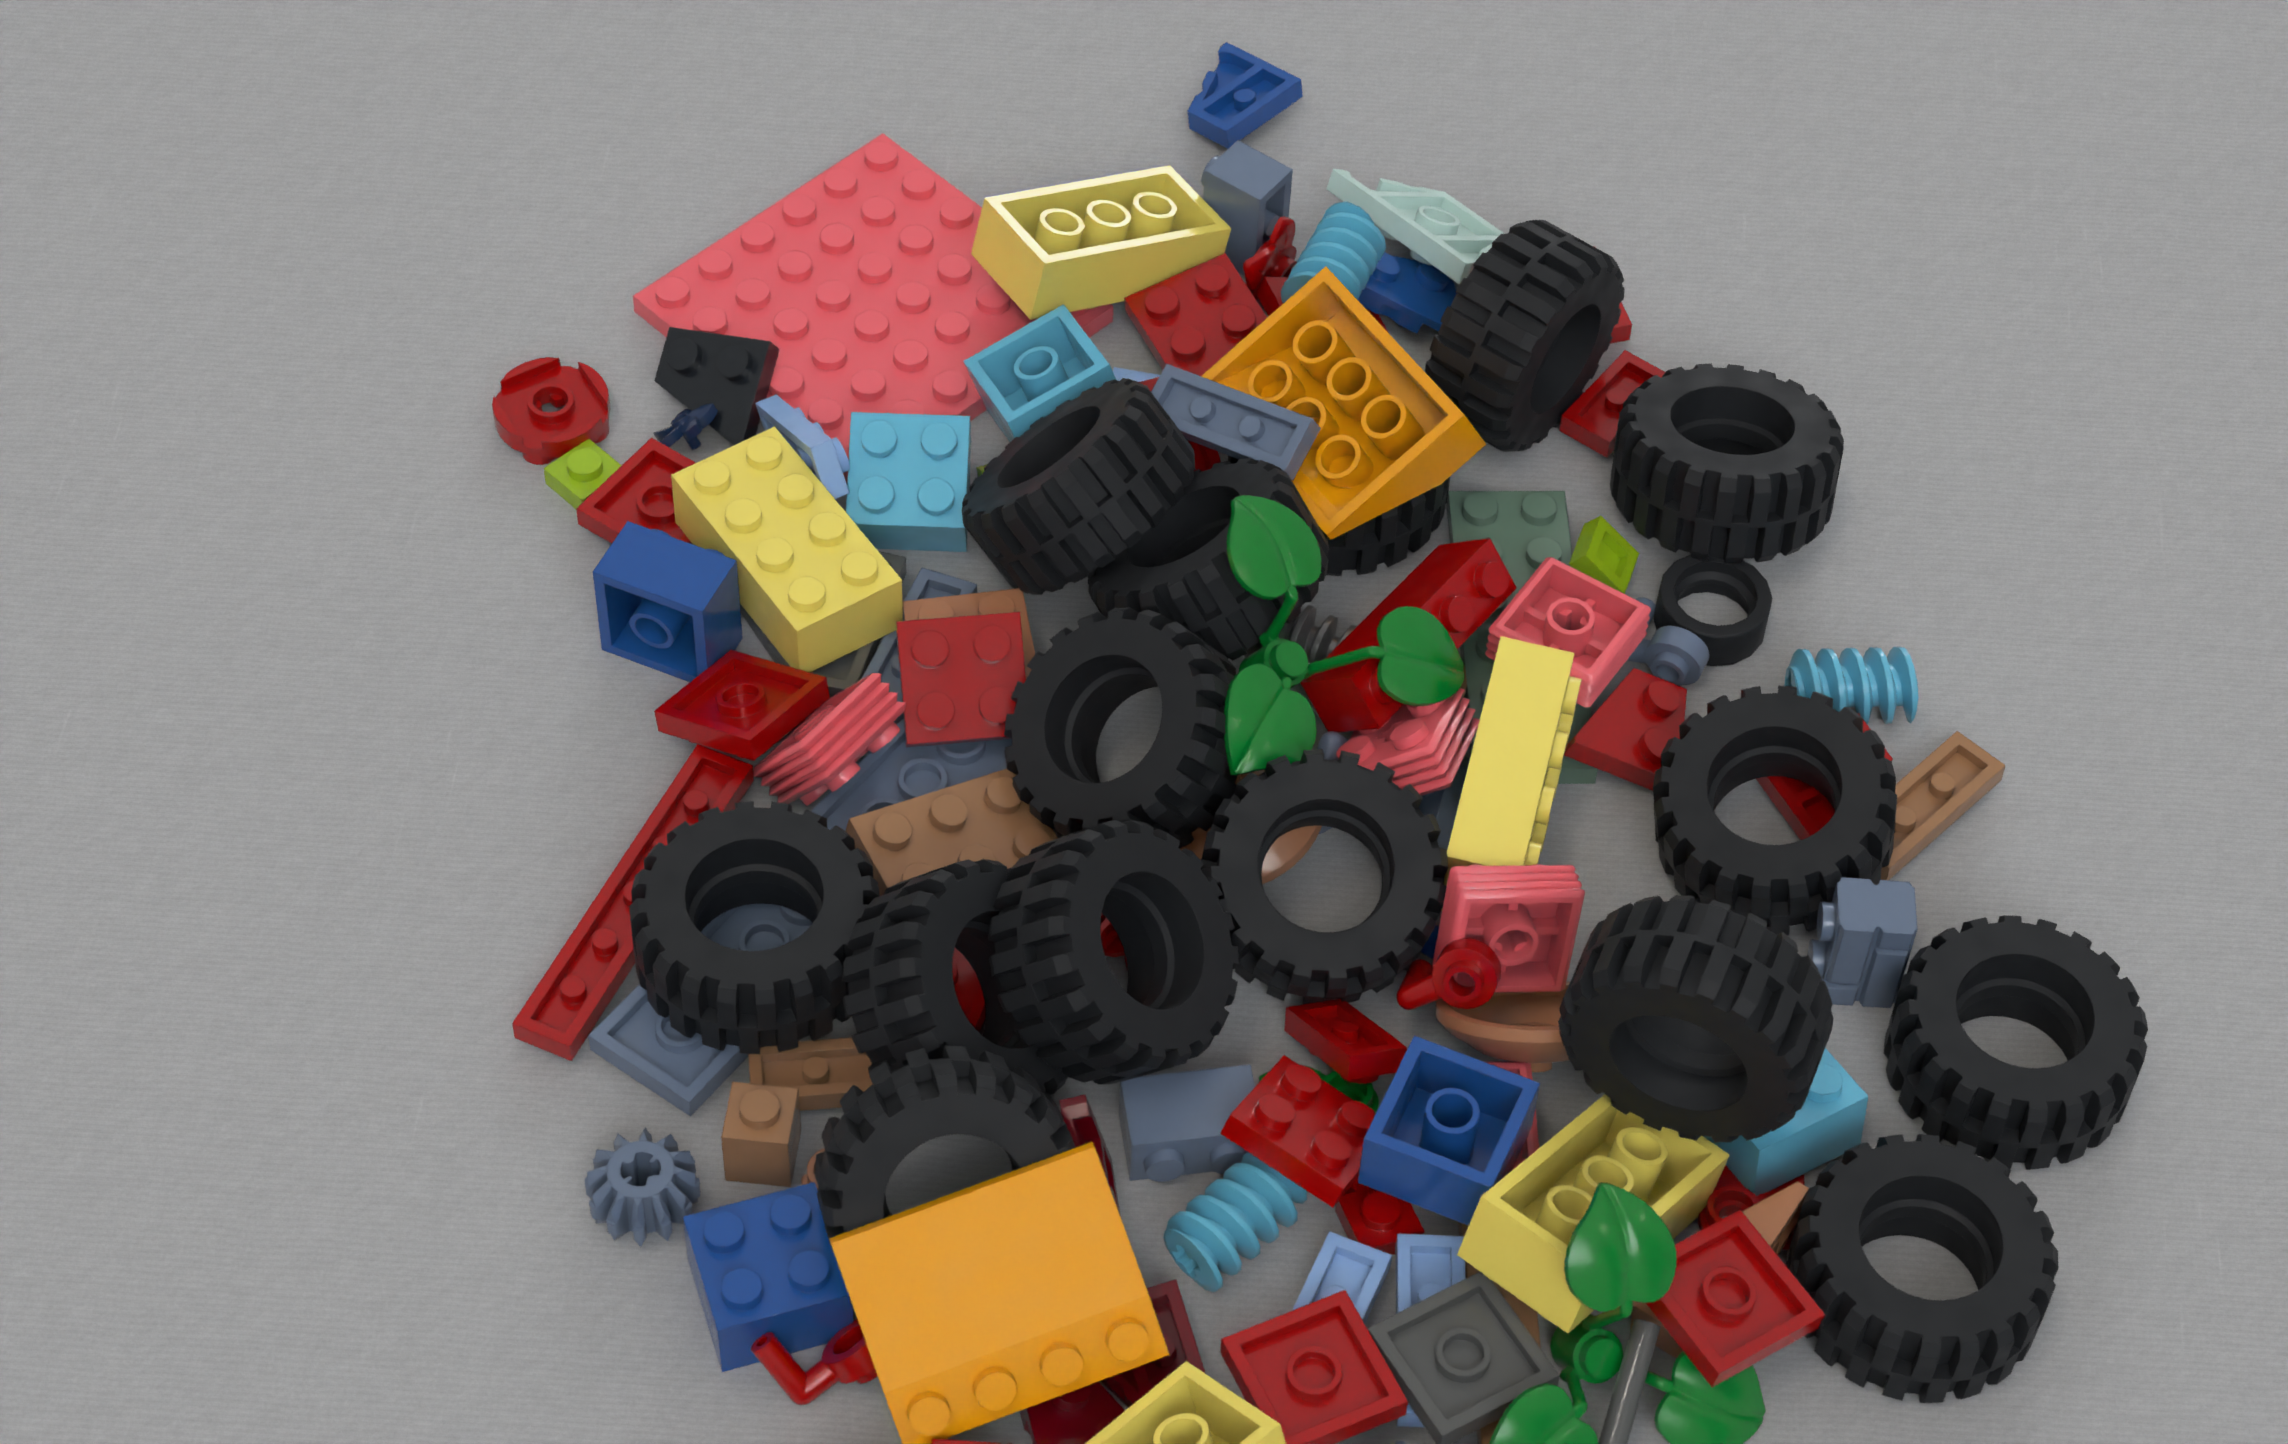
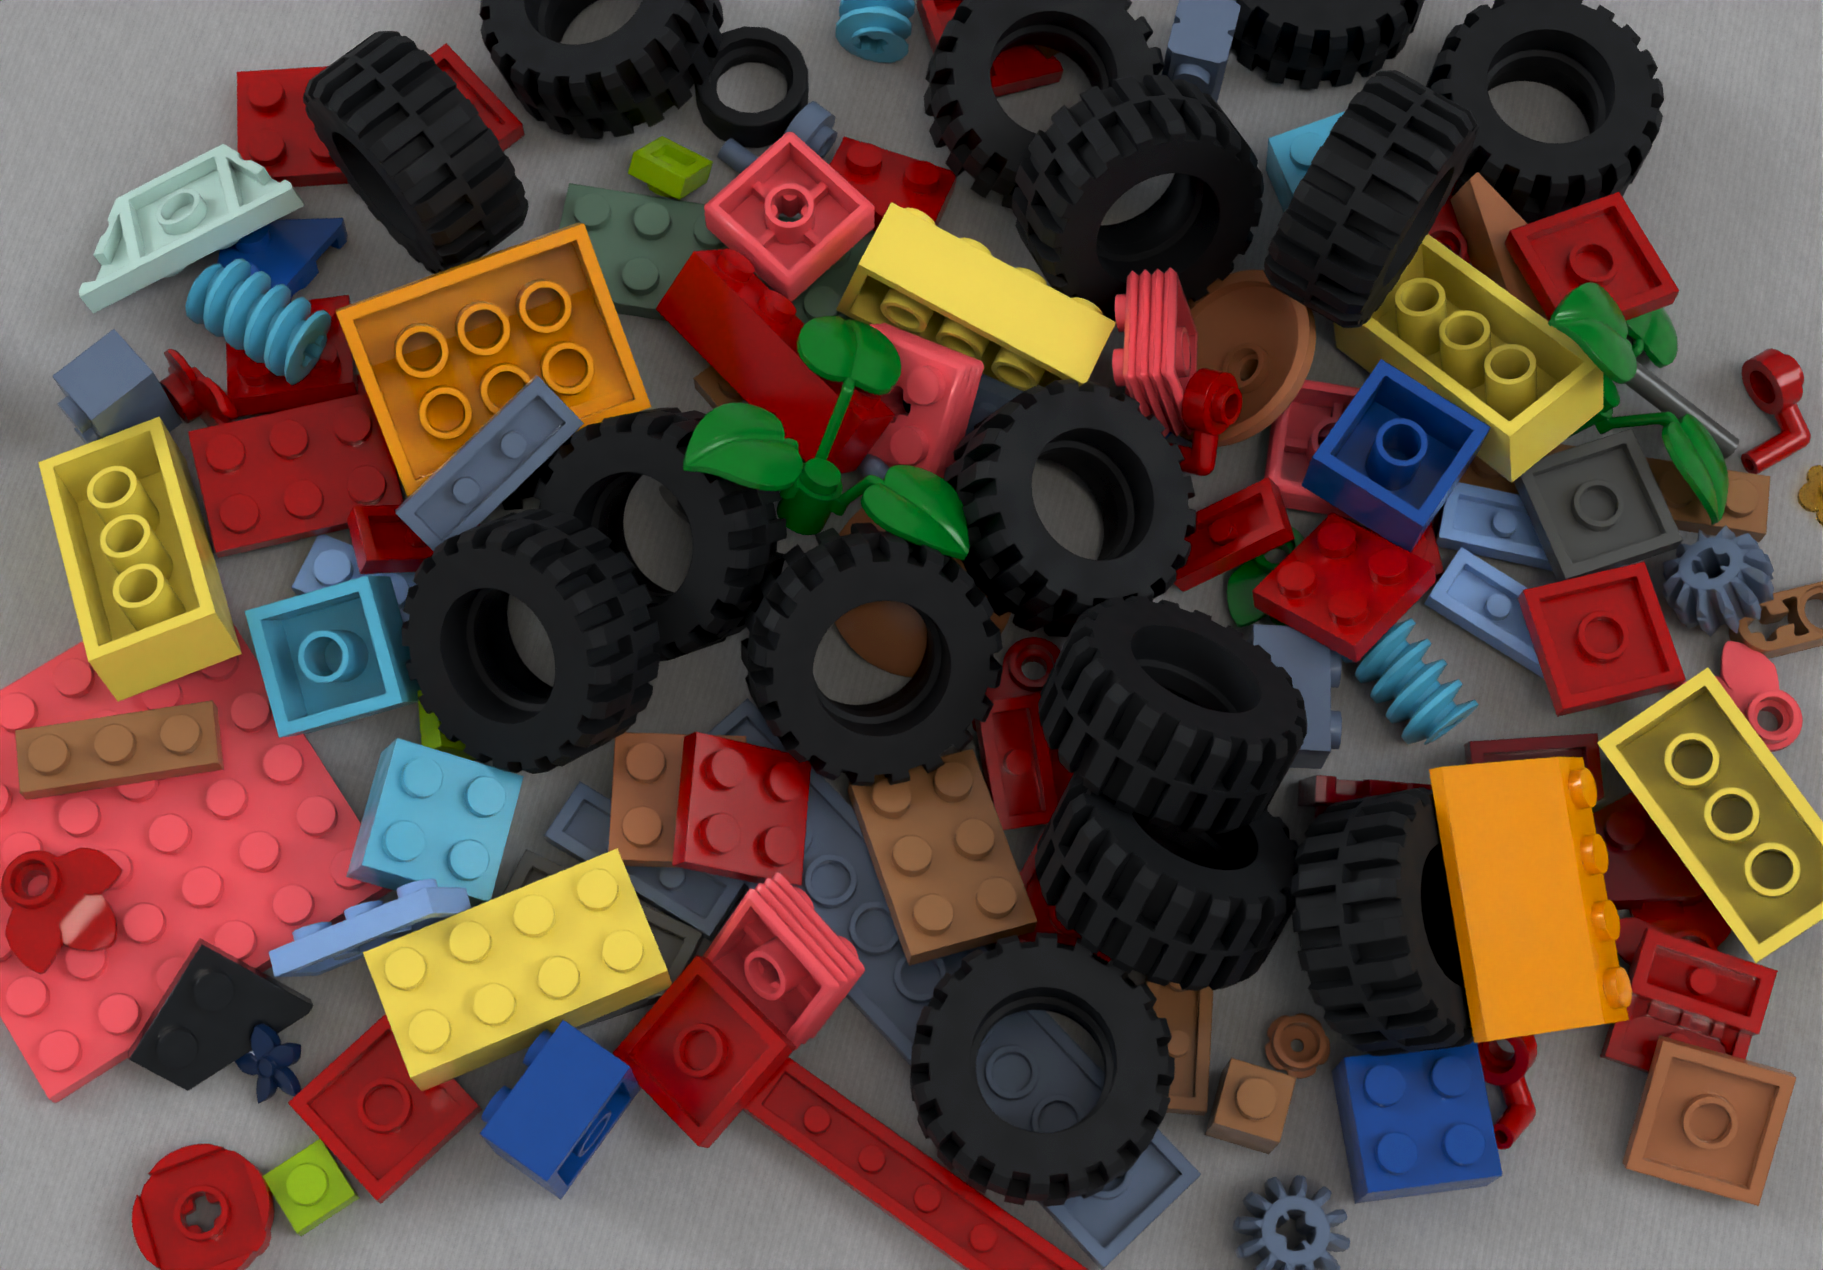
camera: 80 degrees left, 20 degrees up
(792, 258) = (66, 912): none -> red plate
(934, 274) = (119, 750): none -> medium nougat plate
(1700, 810) = (1105, 150): none -> black tyre

